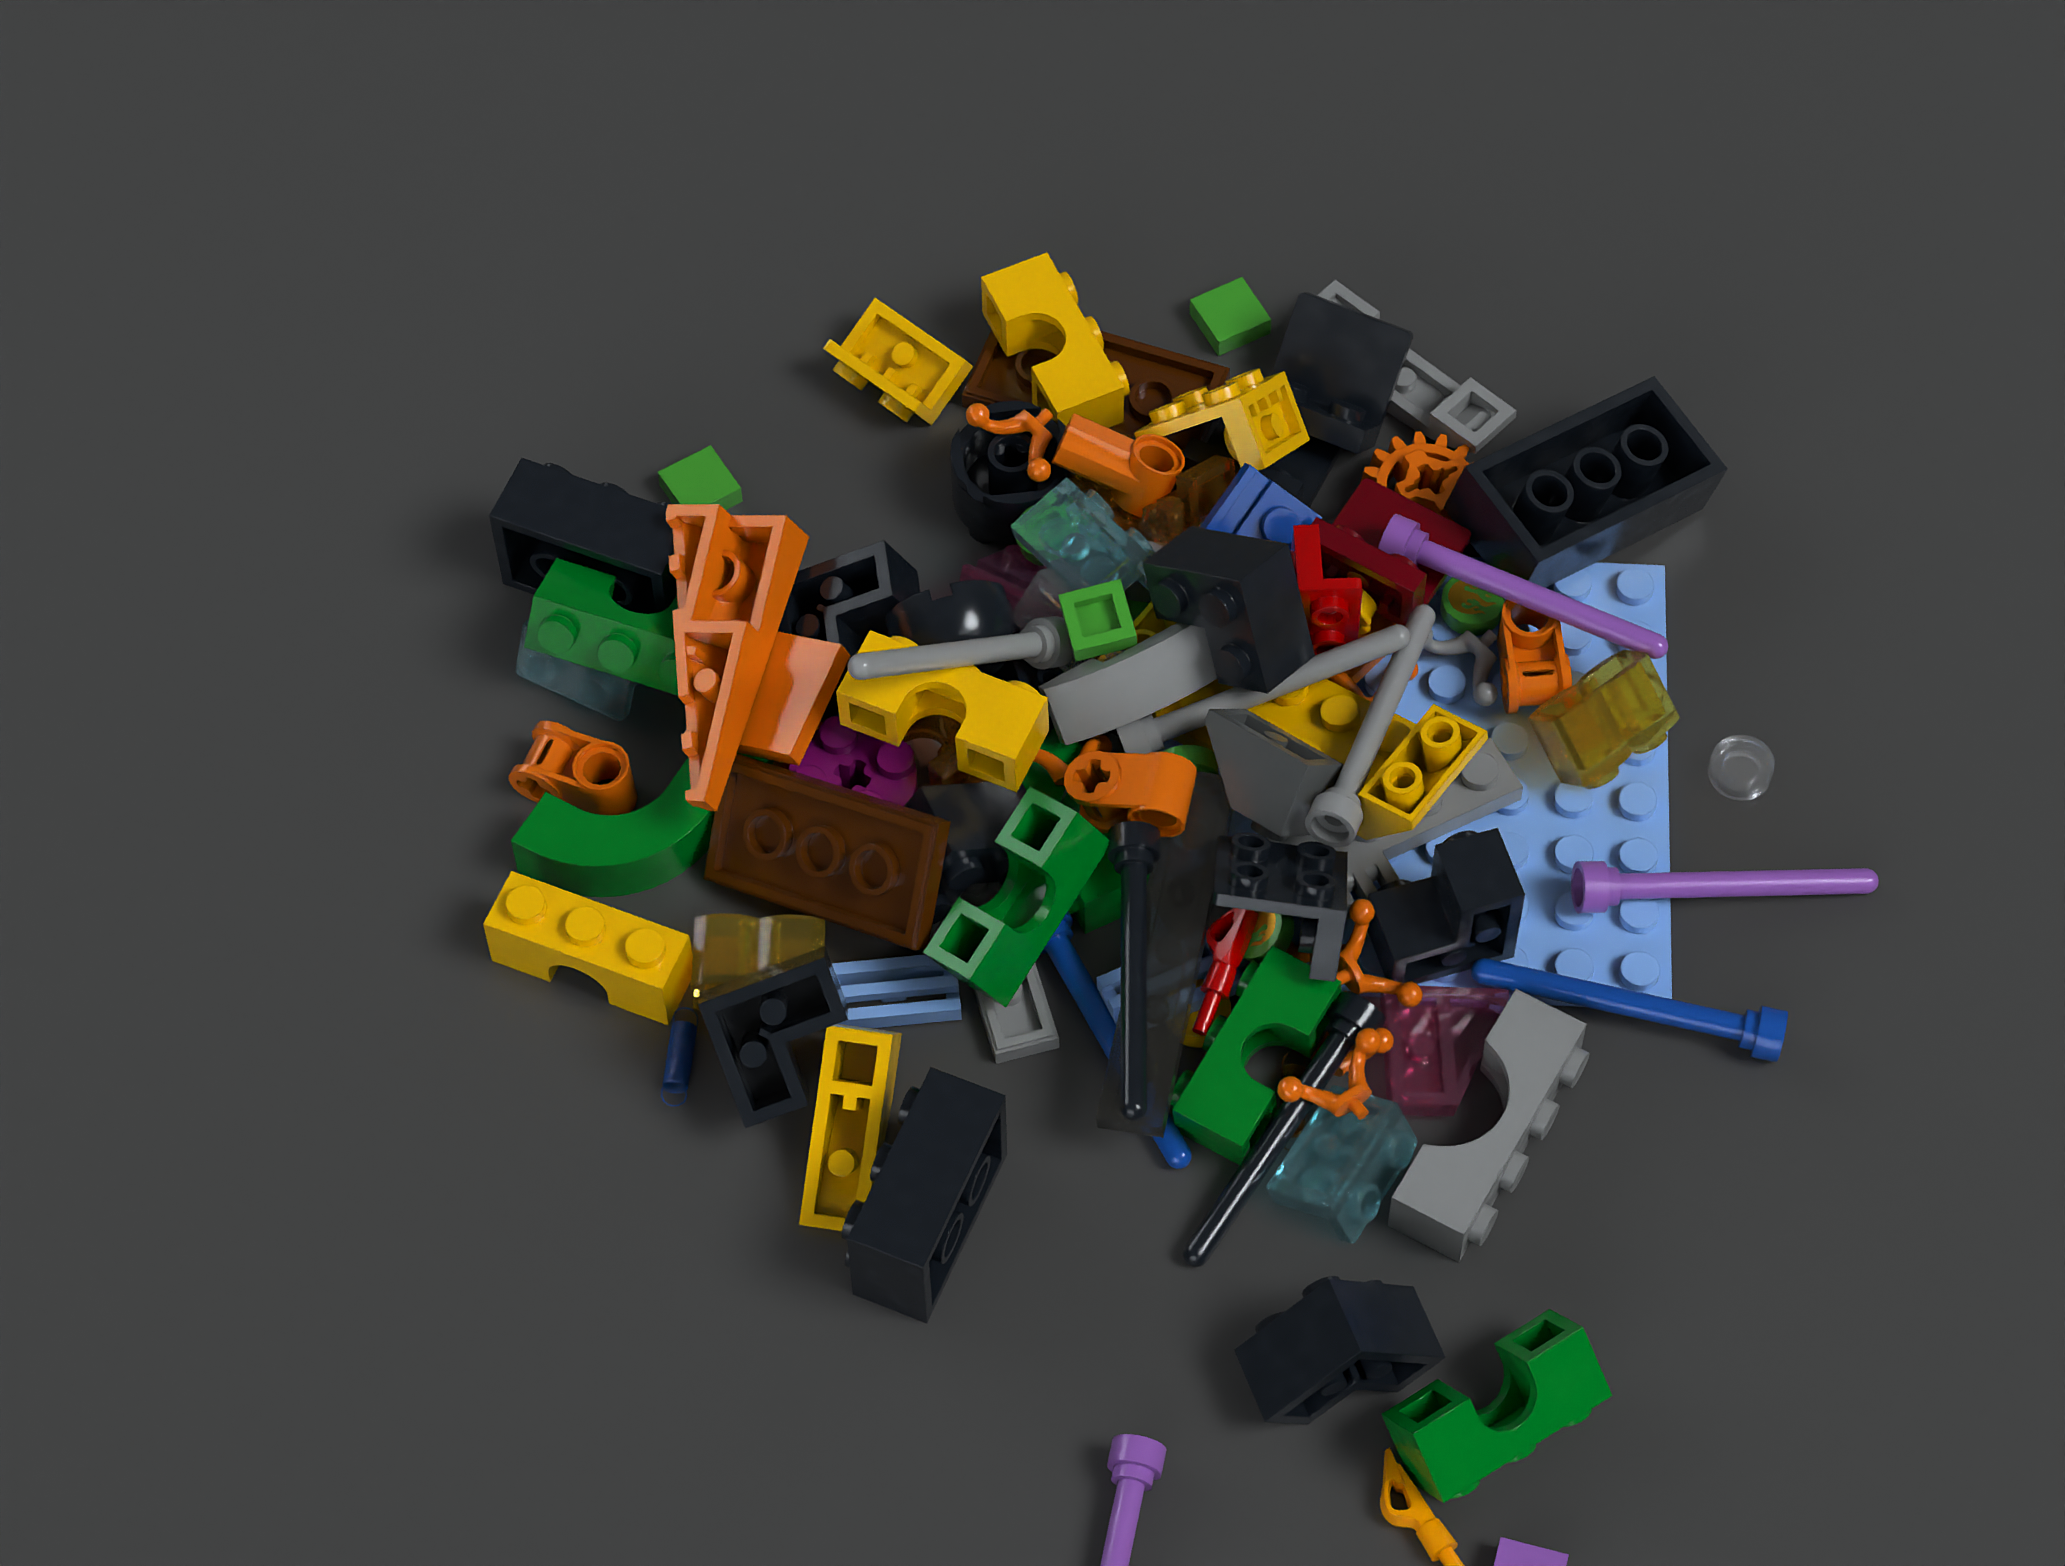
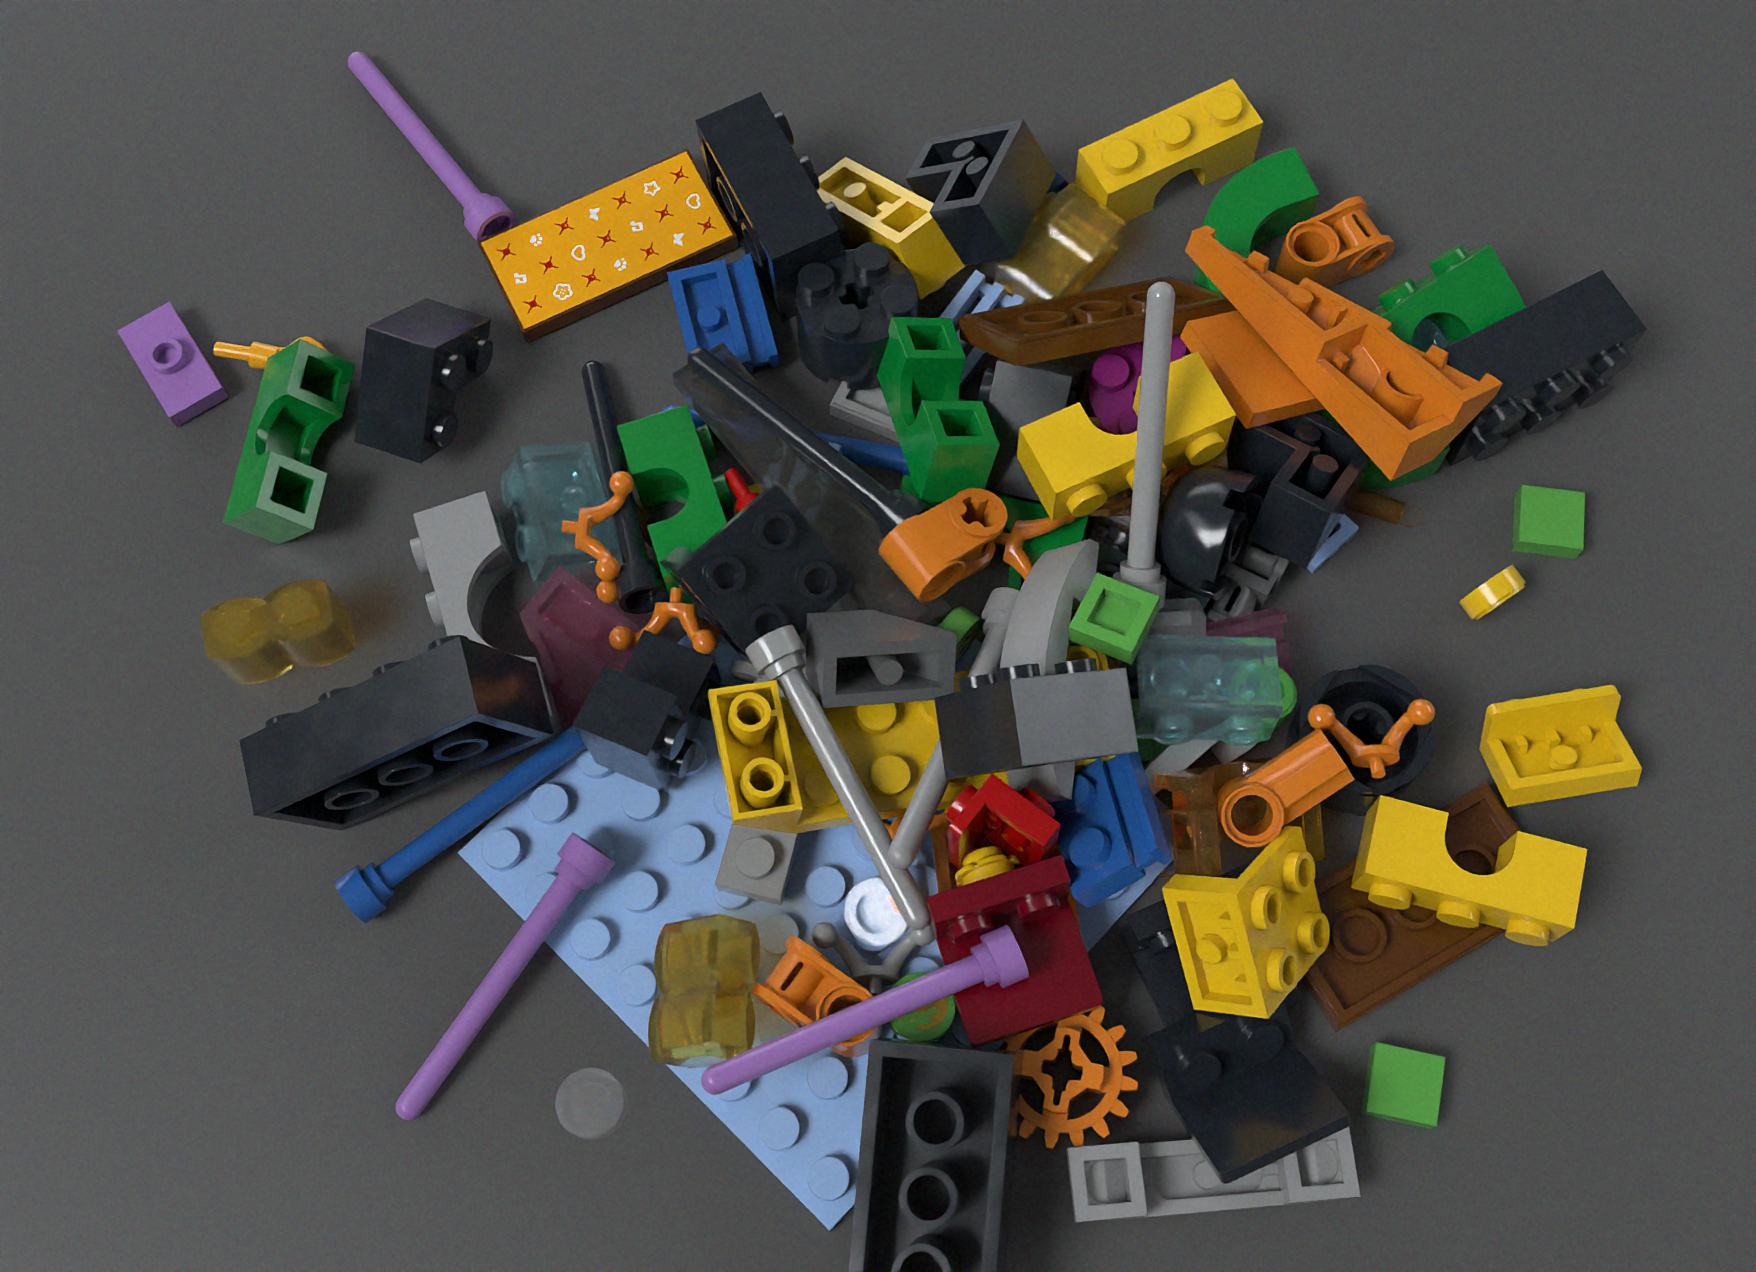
camera: 135 degrees right, 10 degrees up
(803, 476) = (1493, 593): none -> yellow tile
(964, 1018) = (848, 311): none -> black brick
(1056, 1181) = (724, 305): none -> blue plate
(1064, 1345) = (607, 245): none -> light orange tile
(1437, 673) = (873, 913): none -> clear tile
(1638, 1263) = (268, 636): none -> clear yellow brick
(1647, 1044) = (396, 735): none -> black brick

